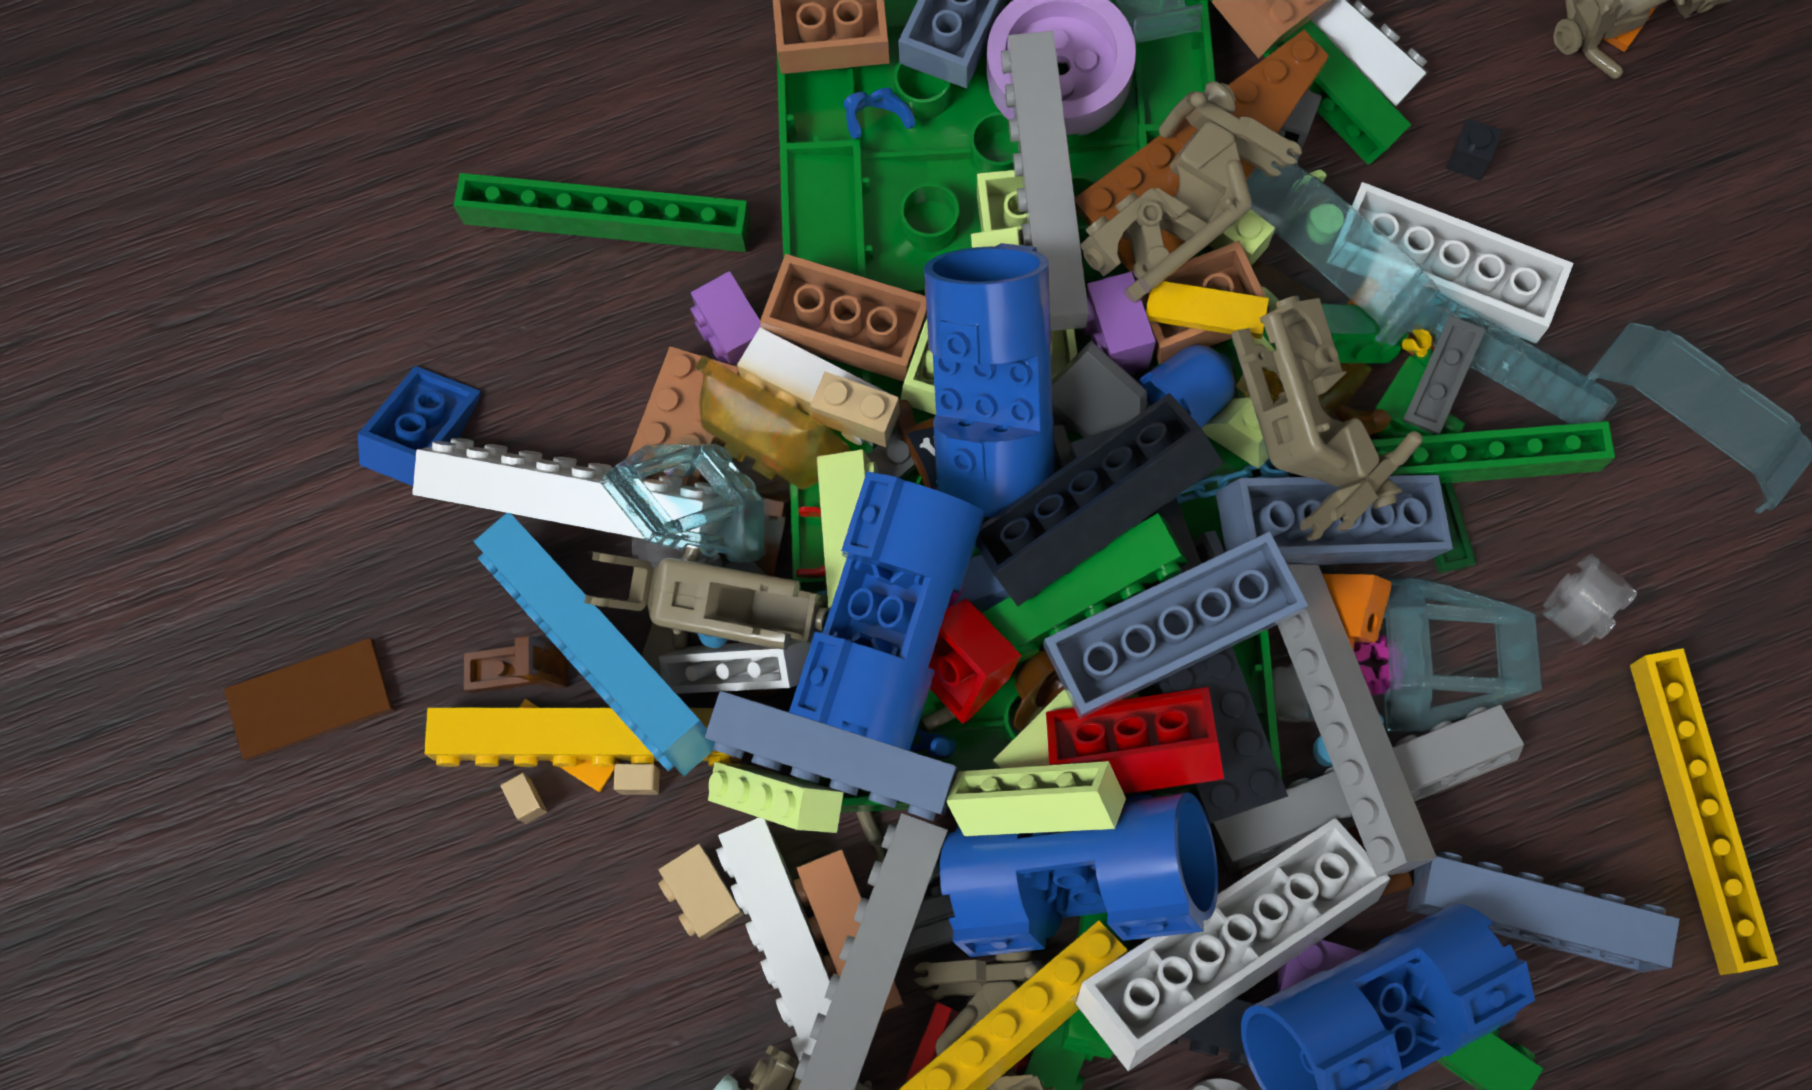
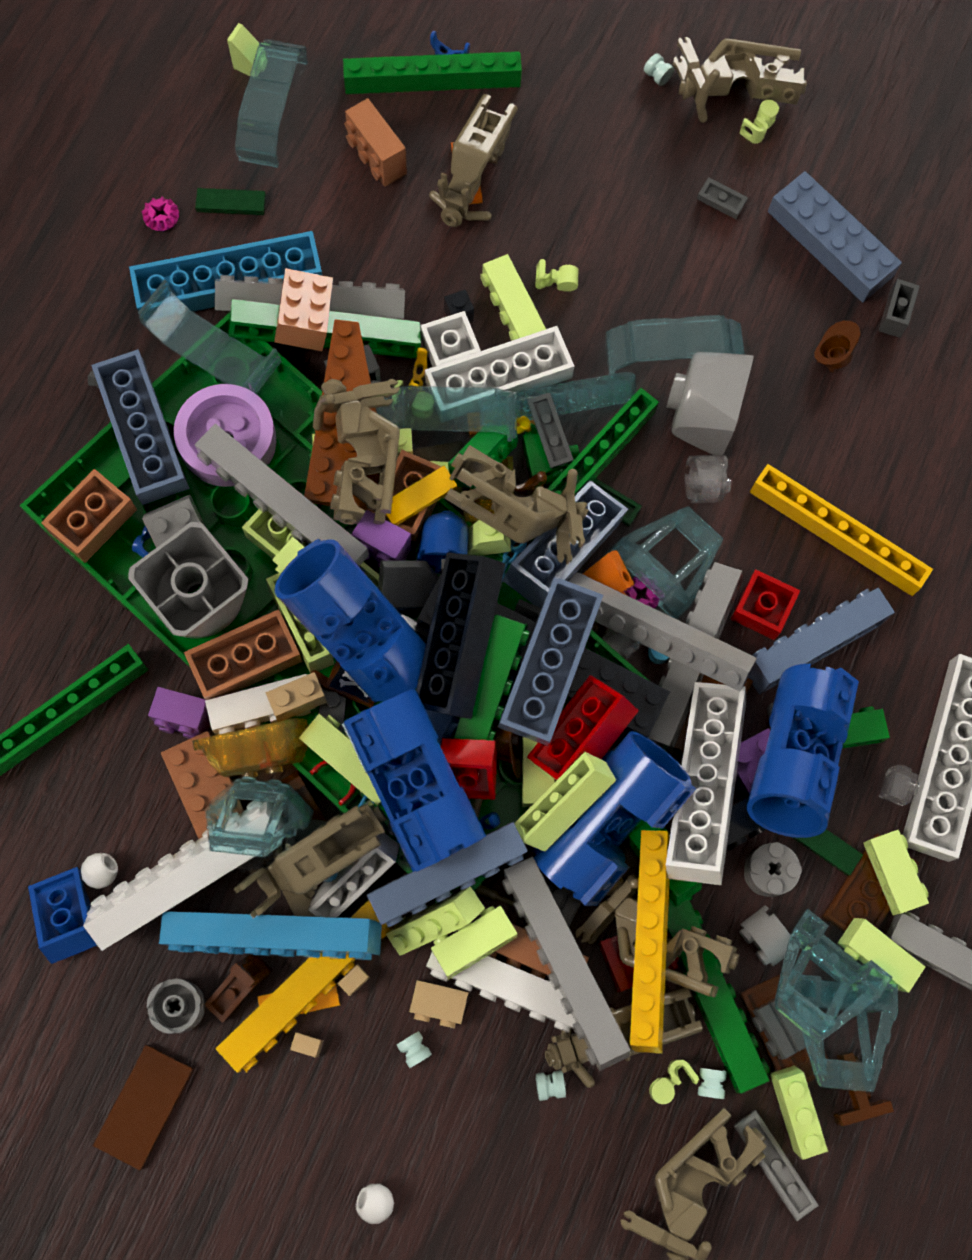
camera: 55 degrees left, 0 degrees up
(416, 618) = (161, 1009): none -> light grey brick
(429, 1034) = (374, 1203): none -> white piece
(495, 413) = (99, 870): none -> white piece
(626, 918) = (414, 1049): none -> light aqua wheel
(790, 858) = (473, 941): none -> yellowish green brick
(860, 185) = (177, 566): none -> light grey piece
(910, 119) = (170, 519): none -> light grey brick
(1369, 173) = (421, 361): none -> yellow cap
(1427, 171) = (449, 339): none -> white brick
(1515, 810) = (765, 604): none -> red brick
(1551, 187) = (511, 298): none -> yellowish green brick
(1641, 220) = (565, 277): none -> yellowish green leg
(1681, 506) = (709, 399): none -> light grey piece

